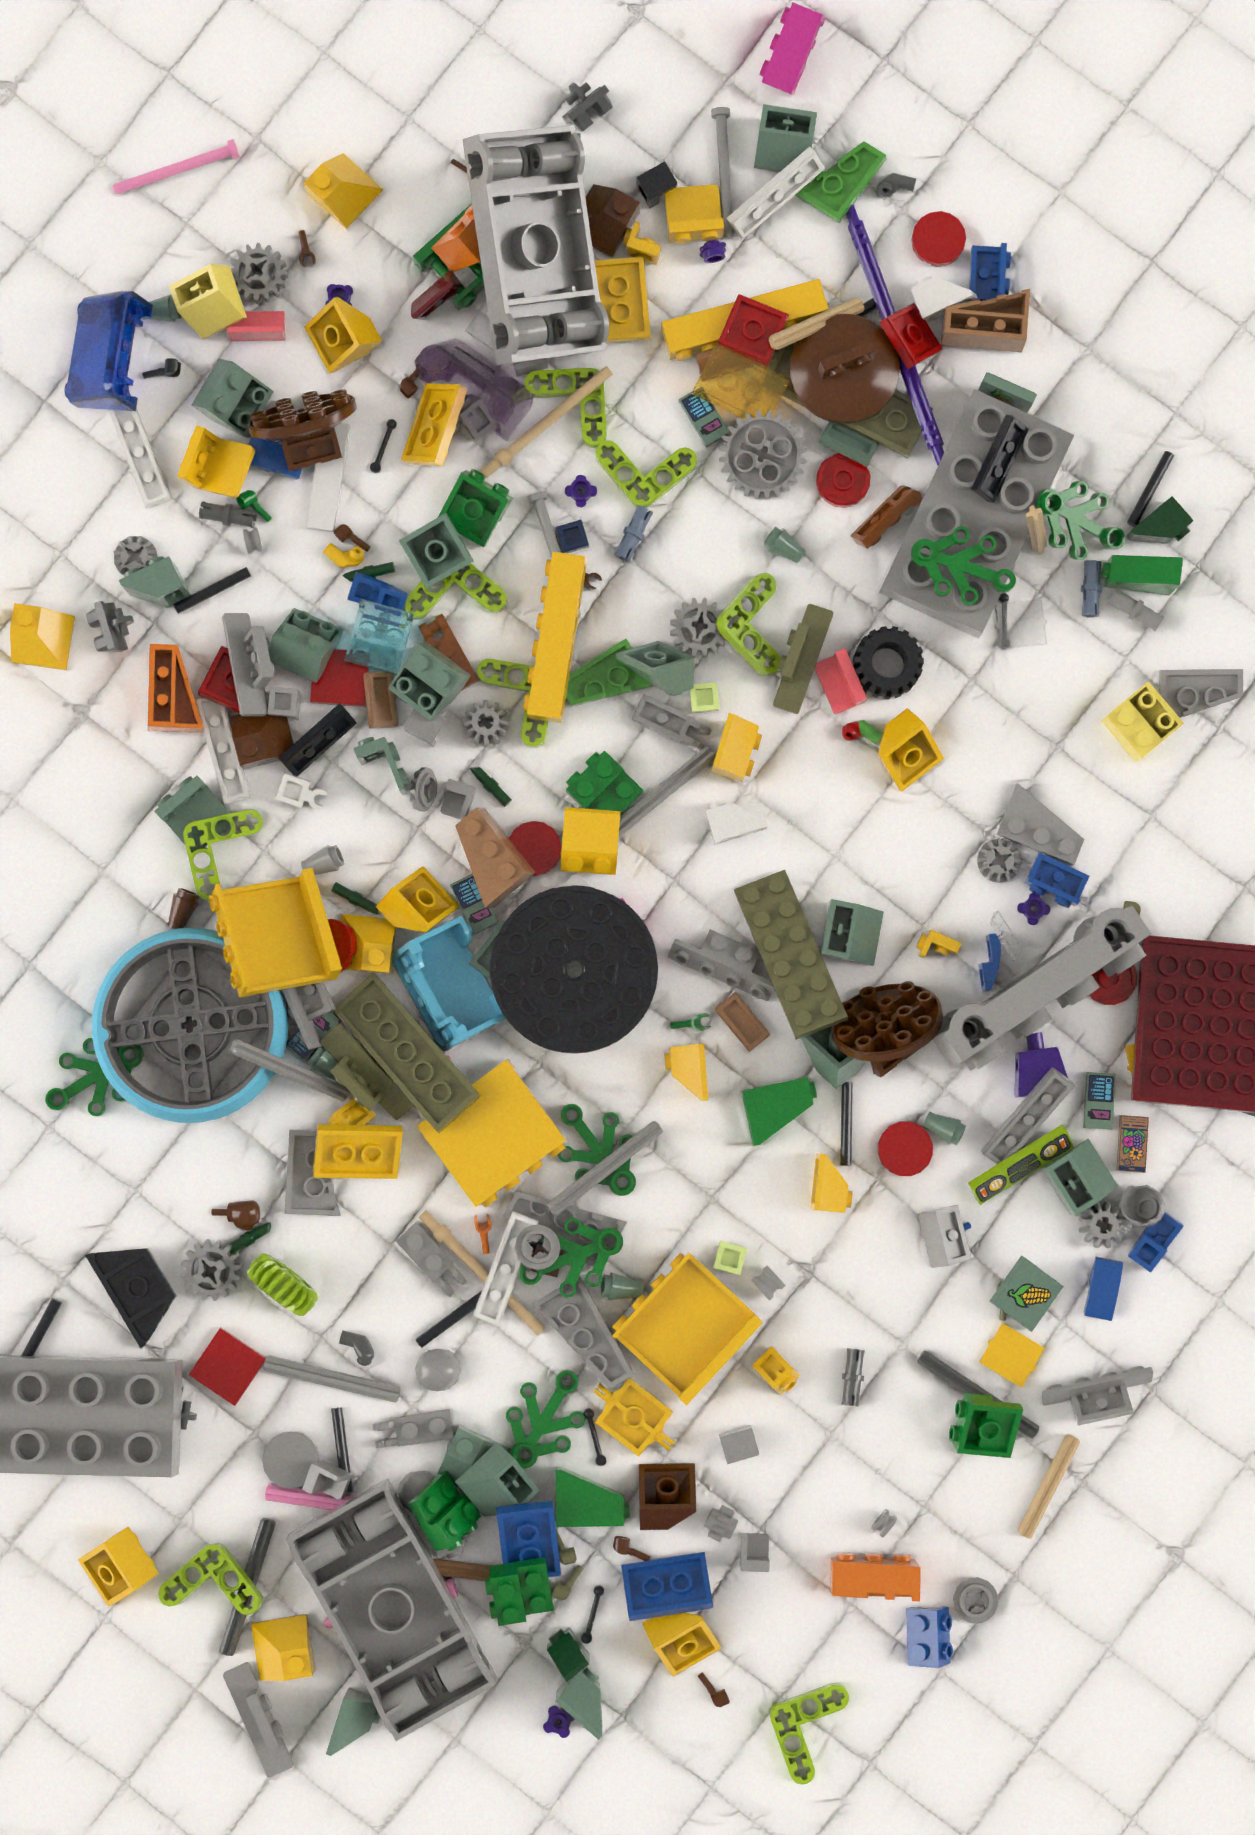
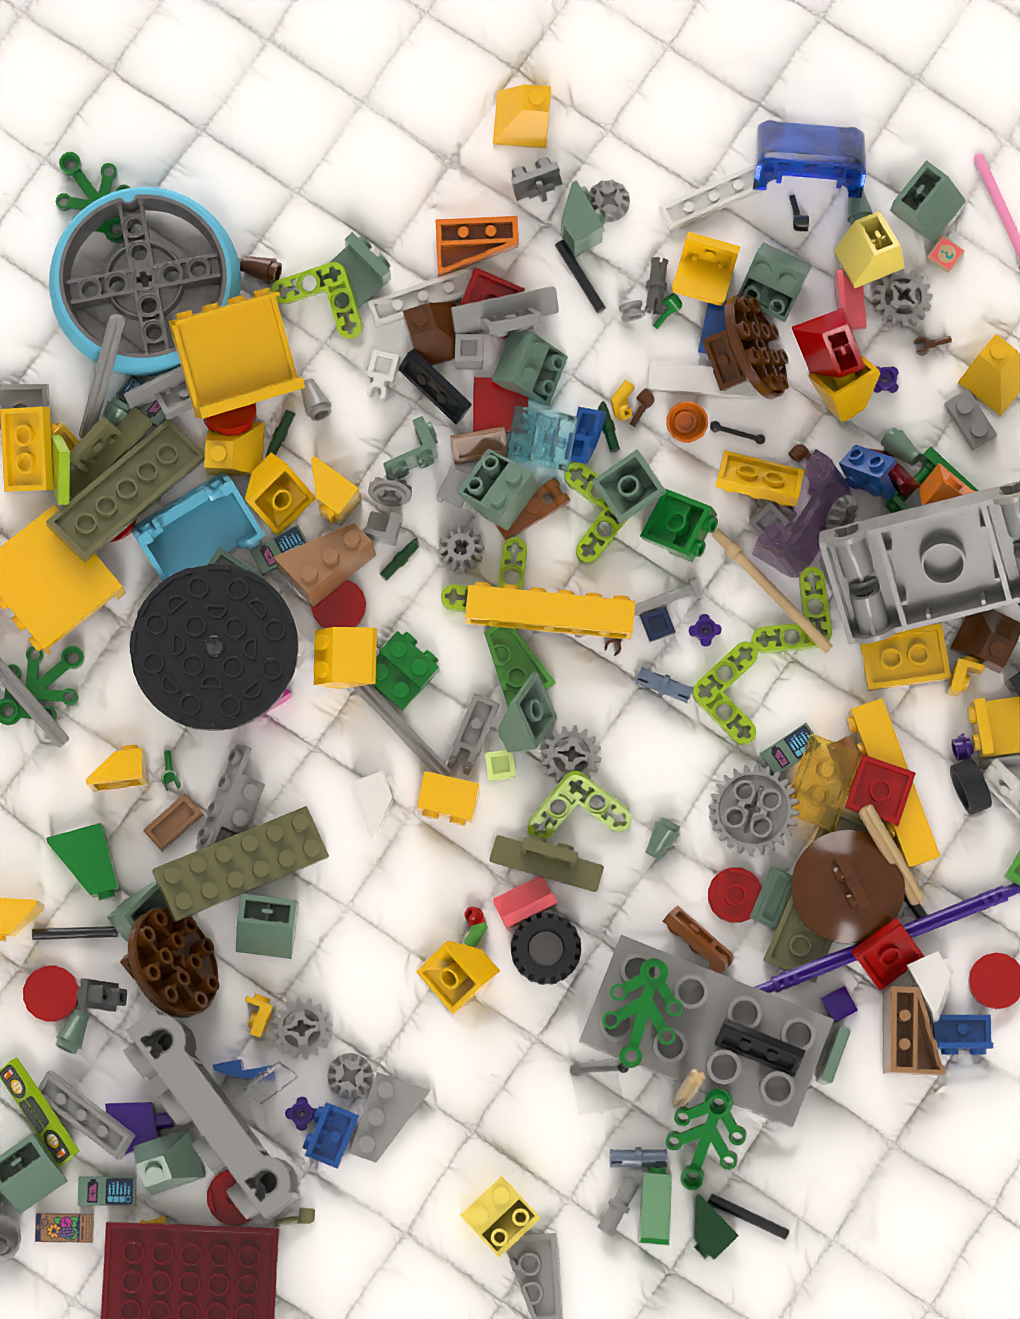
camera: 90 degrees right, 5 degrees down
(160, 240) = (928, 202): none -> sand green slope
(215, 228) = (945, 254): none -> tile
(304, 344) = (829, 345): none -> red slope
(371, 492) = (687, 421): none -> orange hair
(383, 1114) = (61, 469): none -> lime tile
(385, 218) = (970, 419): none -> light grey plate
(409, 286) = (899, 445): none -> sand green cone
(422, 846) = (334, 493): none -> yellow slope
(435, 316) = (869, 471): none -> blue bracket
(476, 347) = (842, 512): none -> light grey gear
(752, 244) = (970, 786): none -> black tyre
(911, 1098) = (100, 995): none -> dark grey hips
(940, 904) = (300, 1015): none -> light grey gear
(954, 389) = (838, 1004): none -> dark purple slope
(1076, 1038) = (168, 1162): none -> sand green slope

